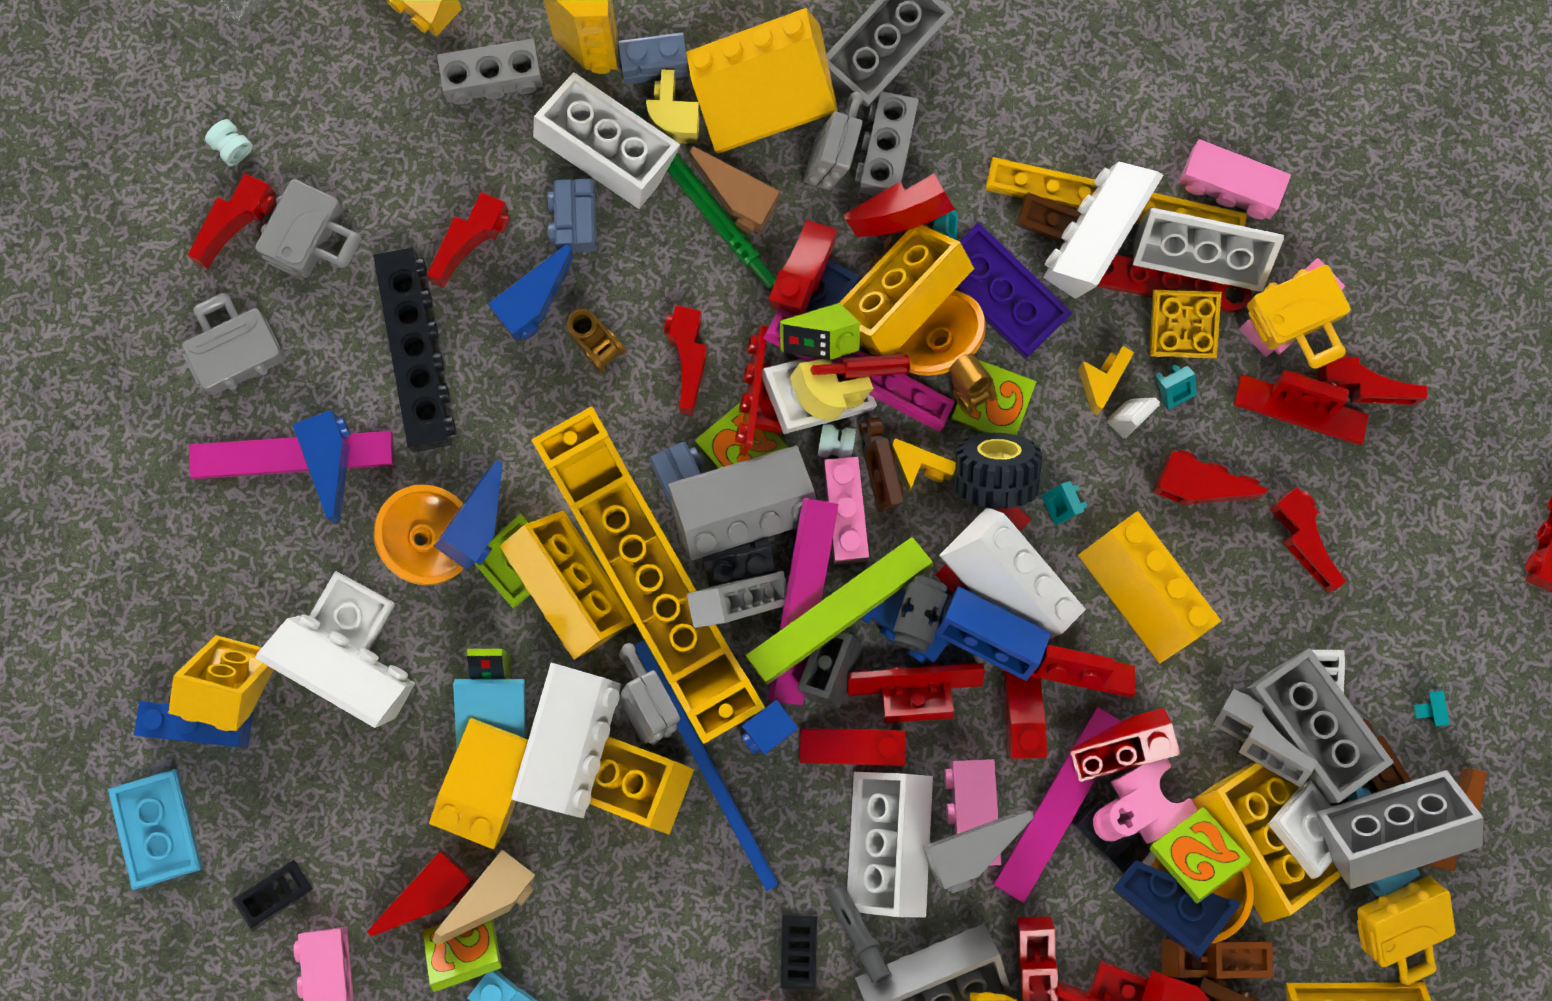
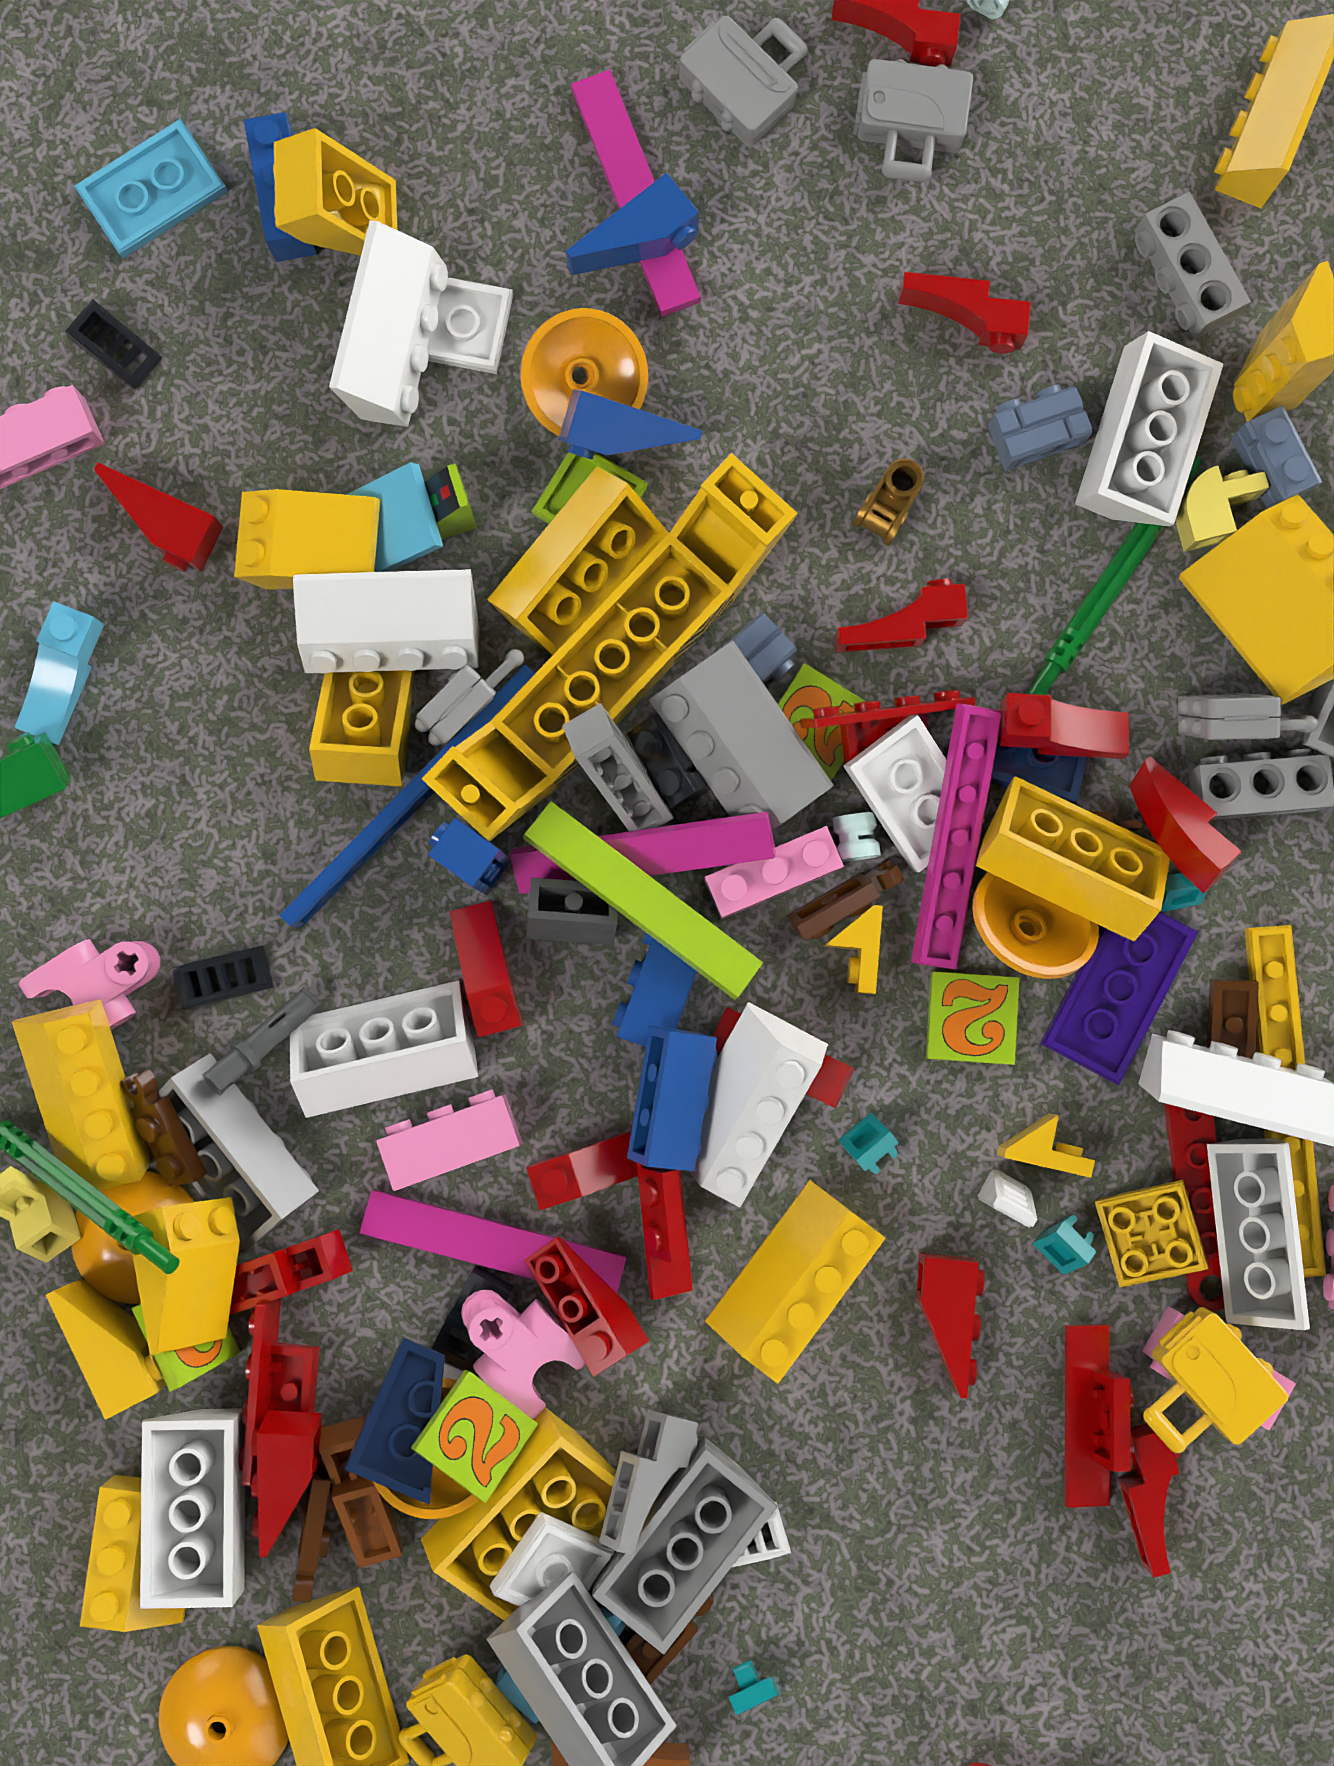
camera: 75 degrees right, 5 degrees up
(391, 271) = (895, 231): black brick -> none
(462, 956) = (110, 579): lime tile -> none
(491, 896) = (182, 593): tan slope -> none
(529, 299) = (920, 409): blue slope -> none
(742, 196) = (1133, 627): medium nougat slope -> none
(821, 333) = (983, 770): lime slope -> none
(824, 395) = (907, 796): light yellow brick -> none
(866, 366) = (959, 840): red axle -> none
(913, 628) = (647, 998): dark grey piece -> none
(916, 692) = (575, 1028): red bracket -> none
(970, 852) = (389, 1144): light grey slope -> none
(971, 383) = (983, 979): pearl gold piece -> none
(998, 470) = (881, 1046): black wheel -> none
(1297, 514) = (947, 1447): red slope -> none

